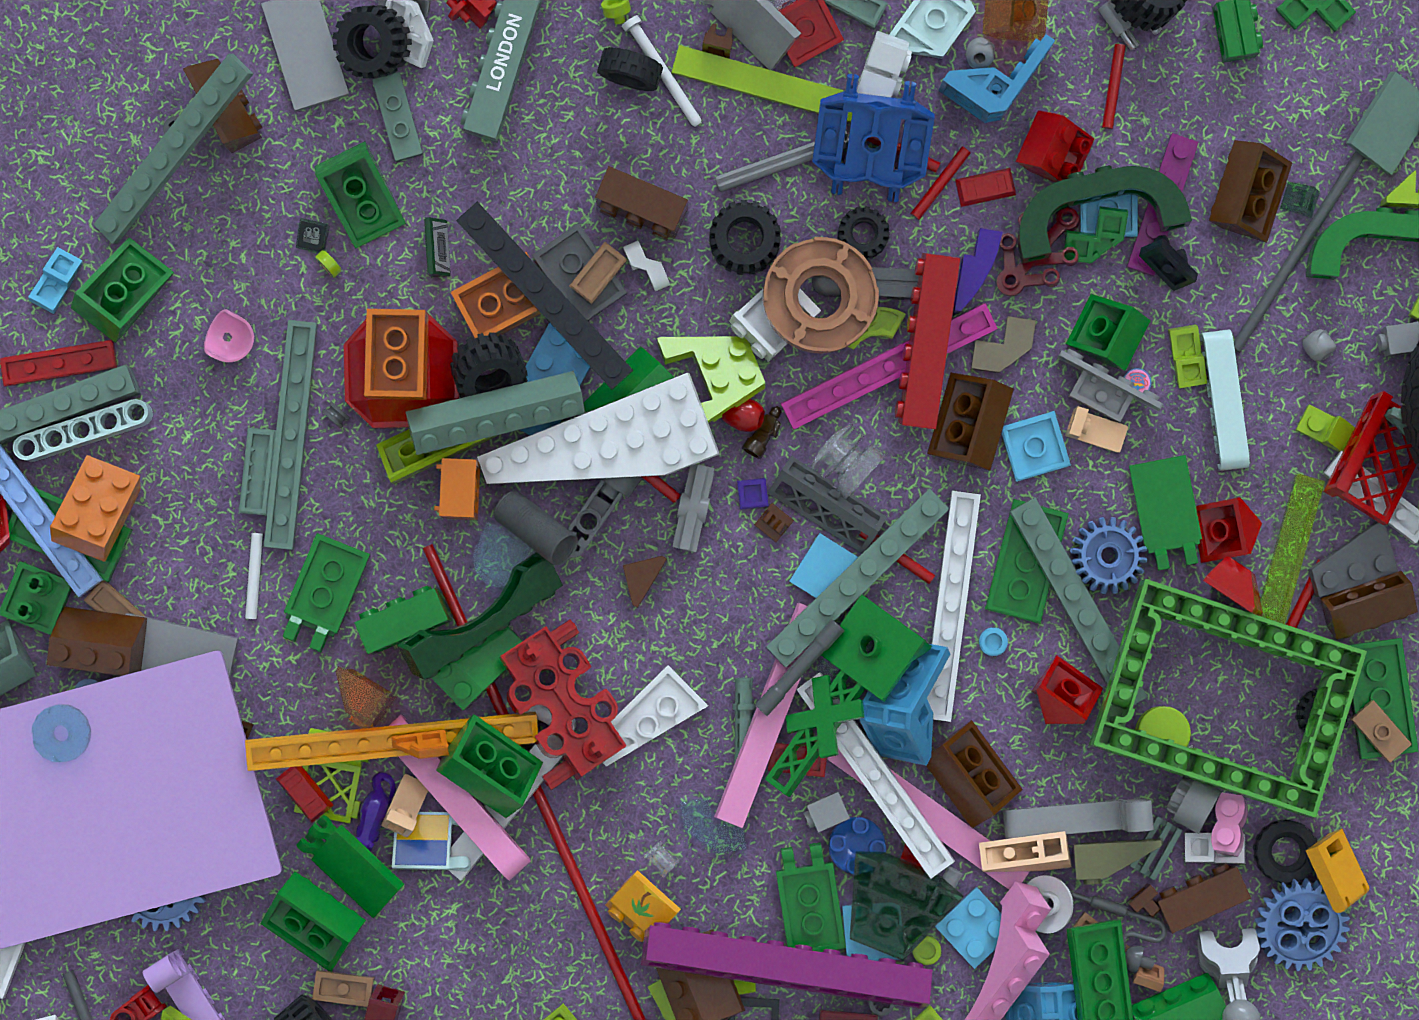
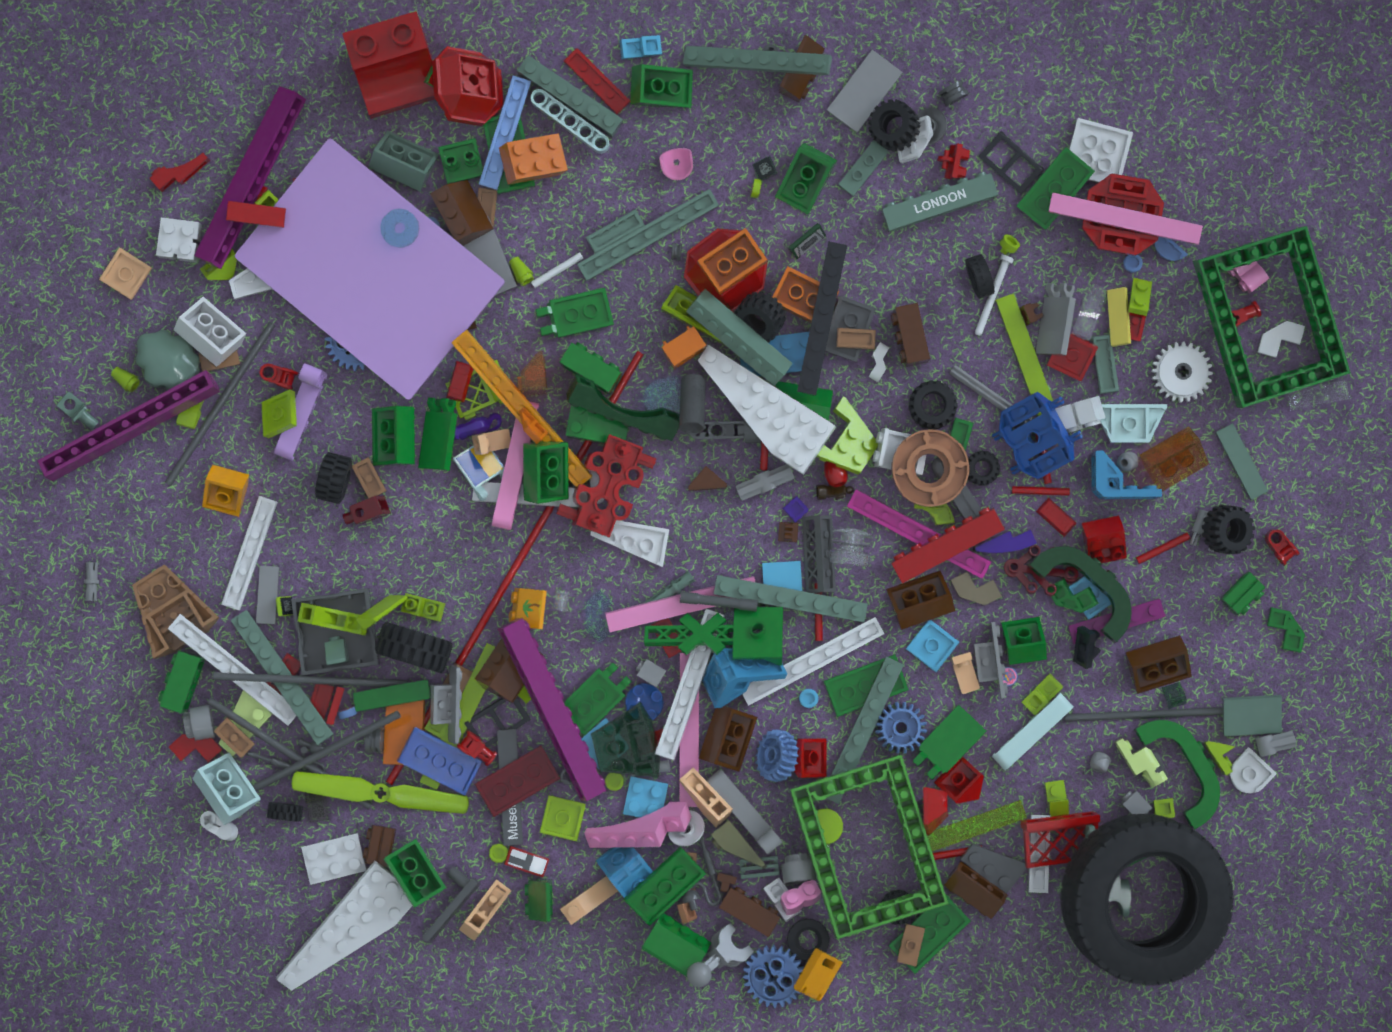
camera: 55 degrees right, 0 degrees up
(224, 621) = (521, 272): none -> lime cone
(800, 226) = (961, 431): none -> green tile
(1037, 730) = (777, 755): none -> medium blue gear
(1355, 292) = (1143, 761): none -> yellowish green plate

